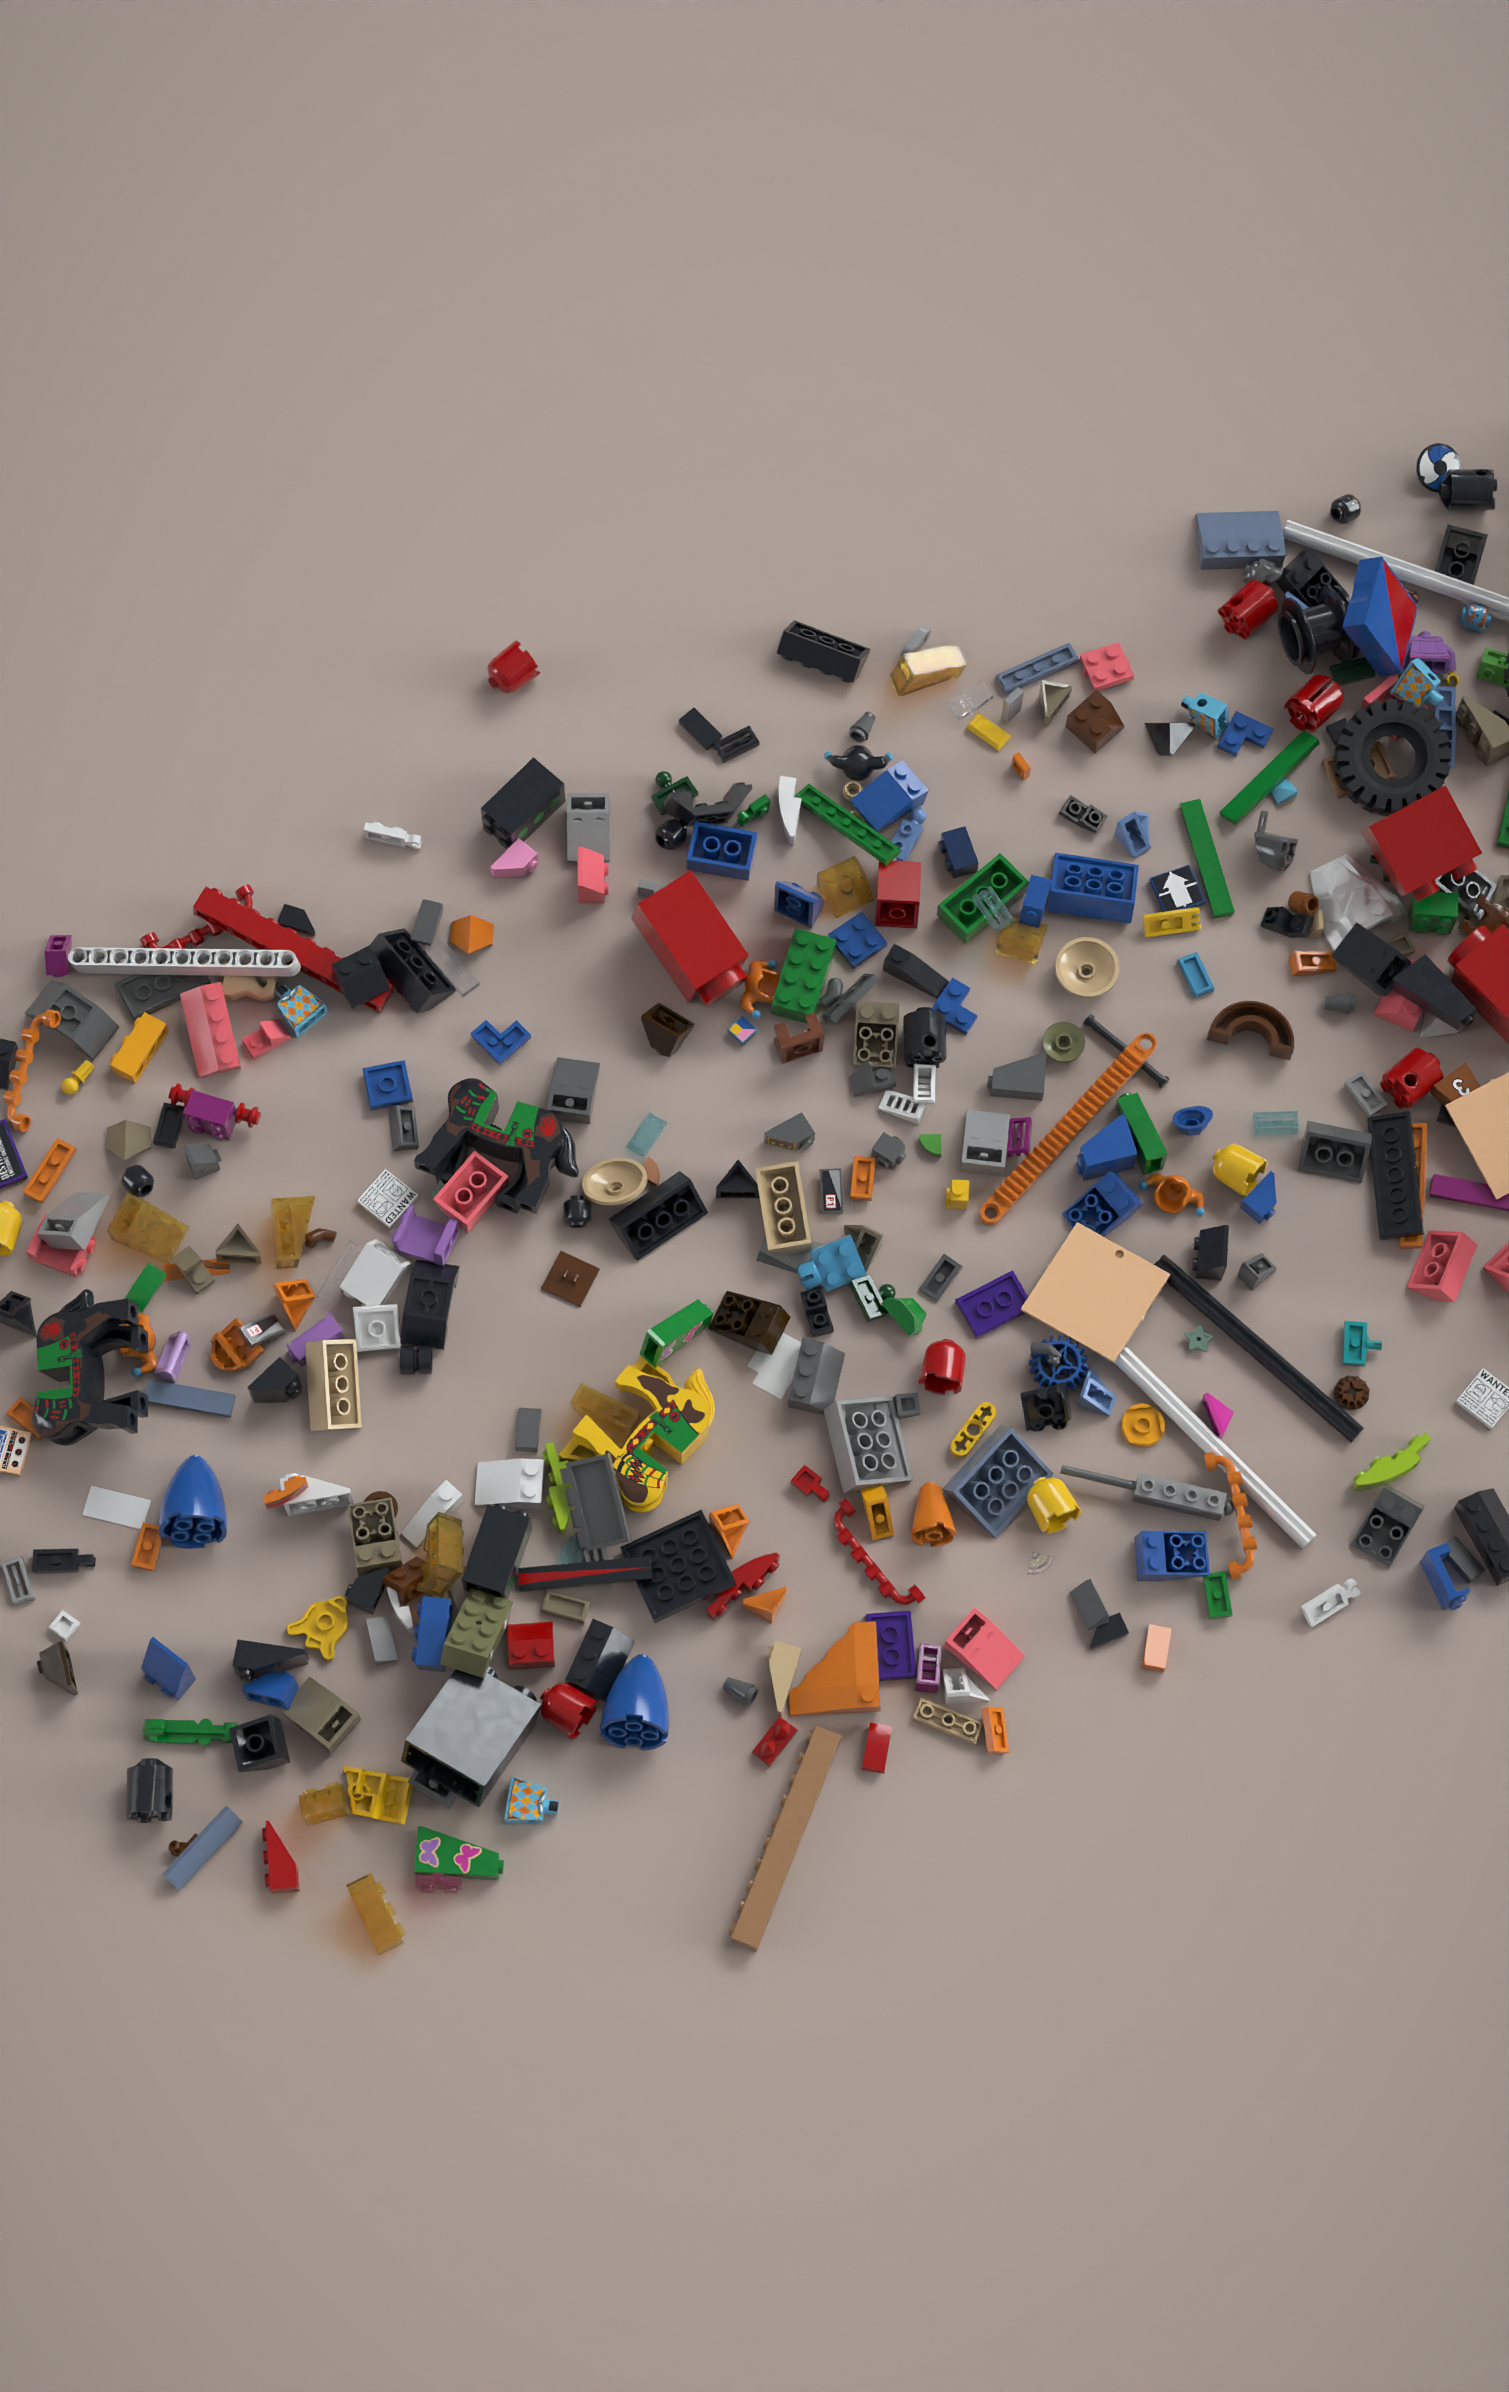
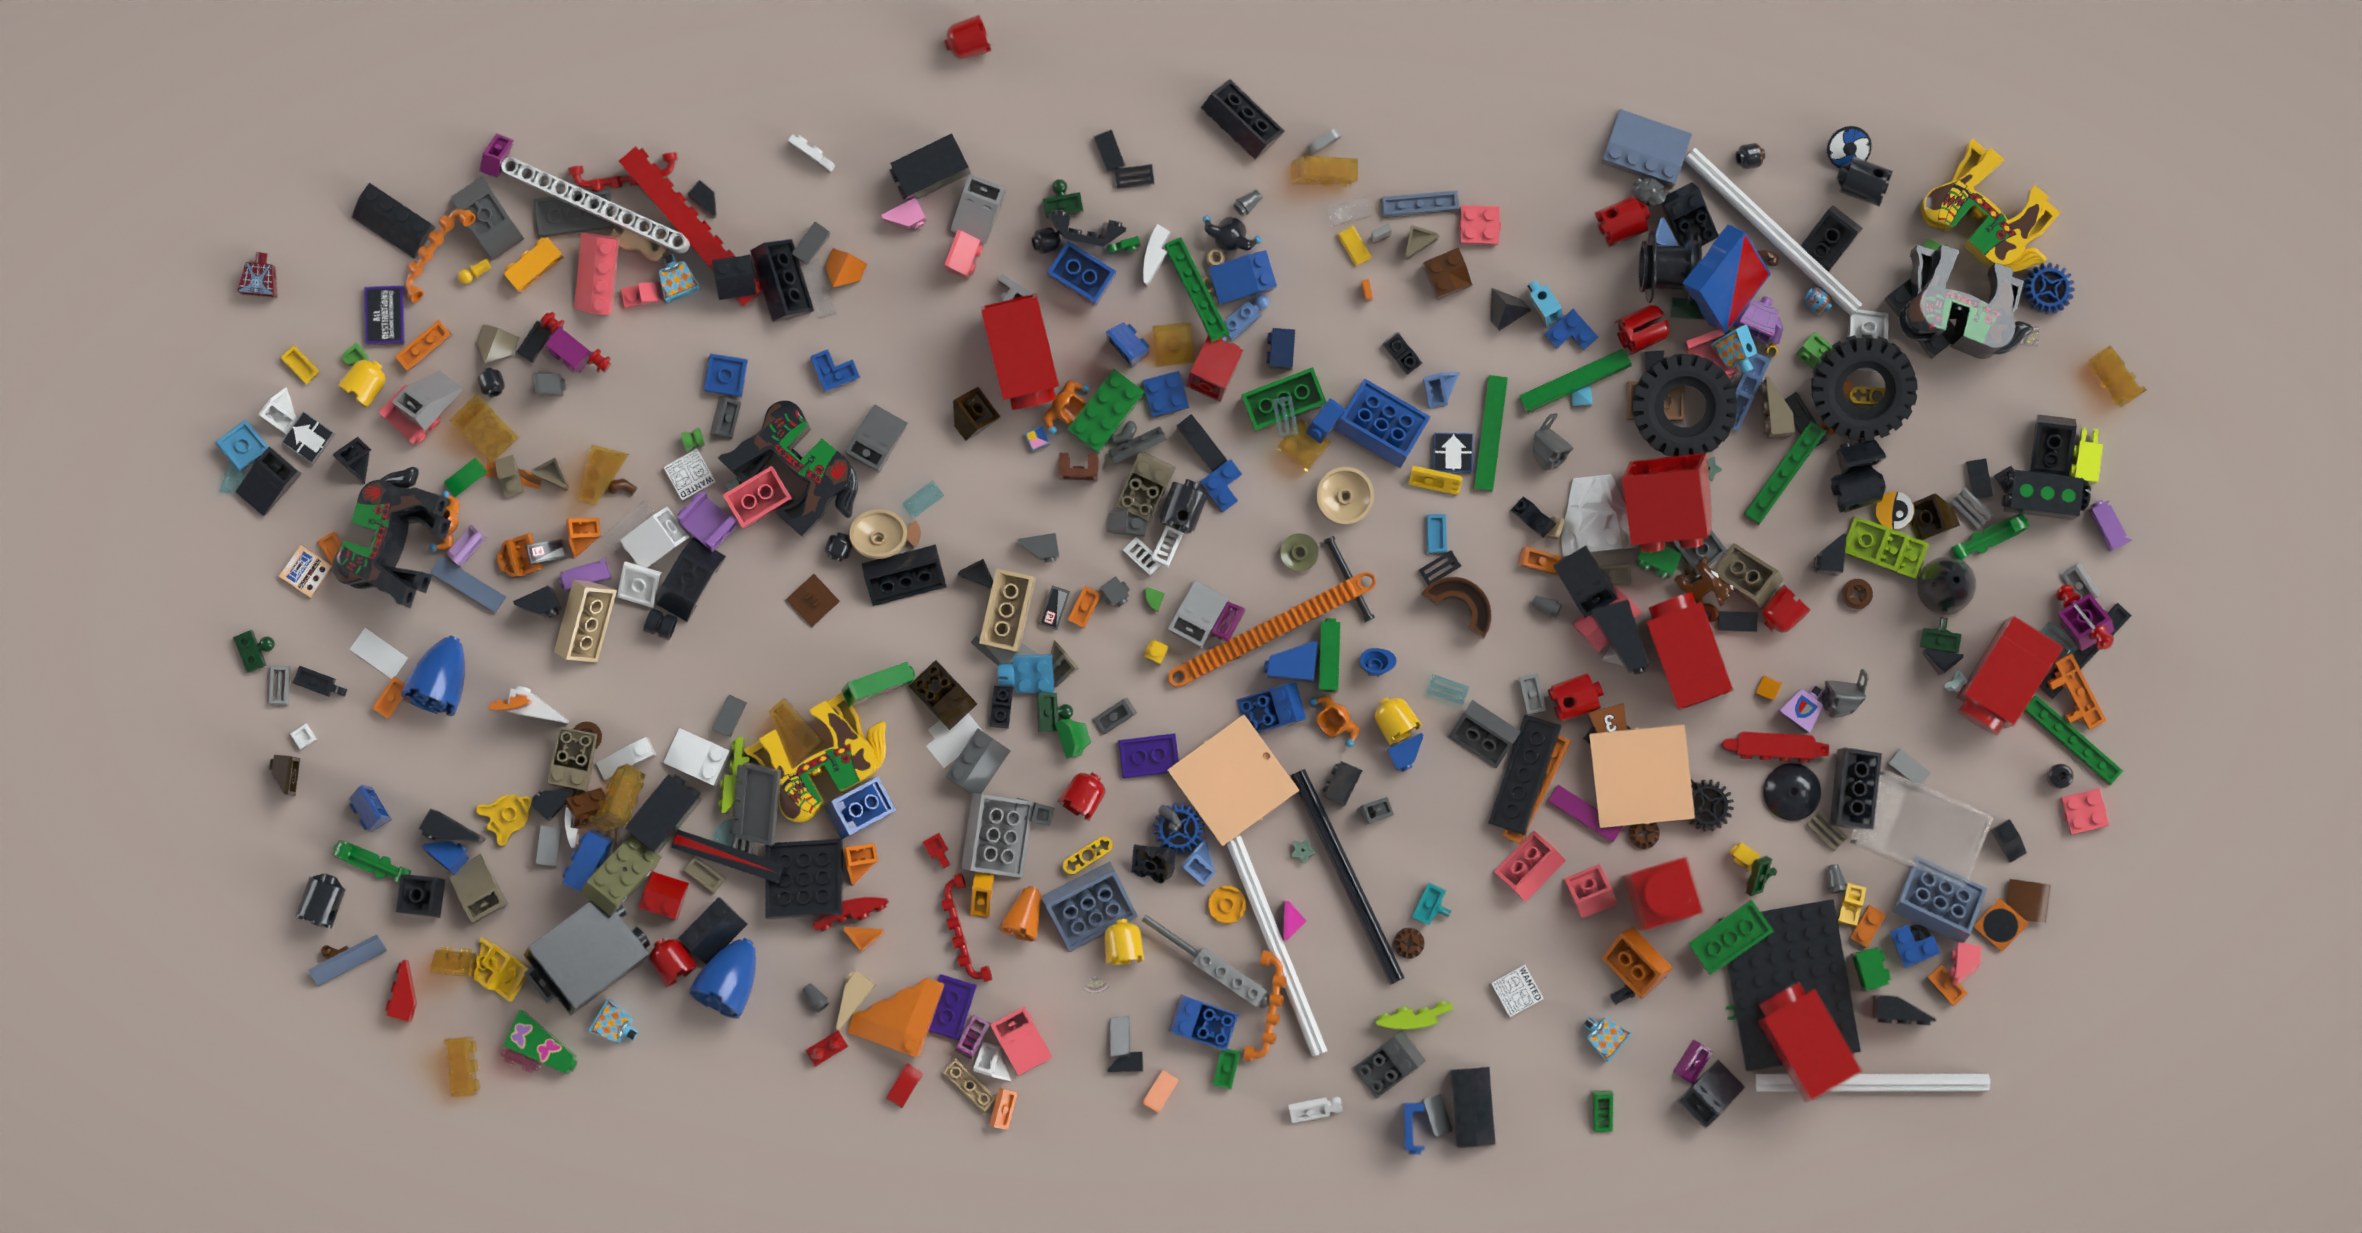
camera: 30 degrees right, 15 degrees up
(377, 1160) = (689, 441): none -> bright green wheel
(707, 1472) = (859, 808): none -> blue slope
(785, 1840) = (807, 1126): medium nougat brick -> none
(1020, 1079) = (1250, 570): dark grey slope -> none
(1224, 993) = (1454, 559): none -> black tile
(1303, 902) = (1553, 506): dark orange brick -> none

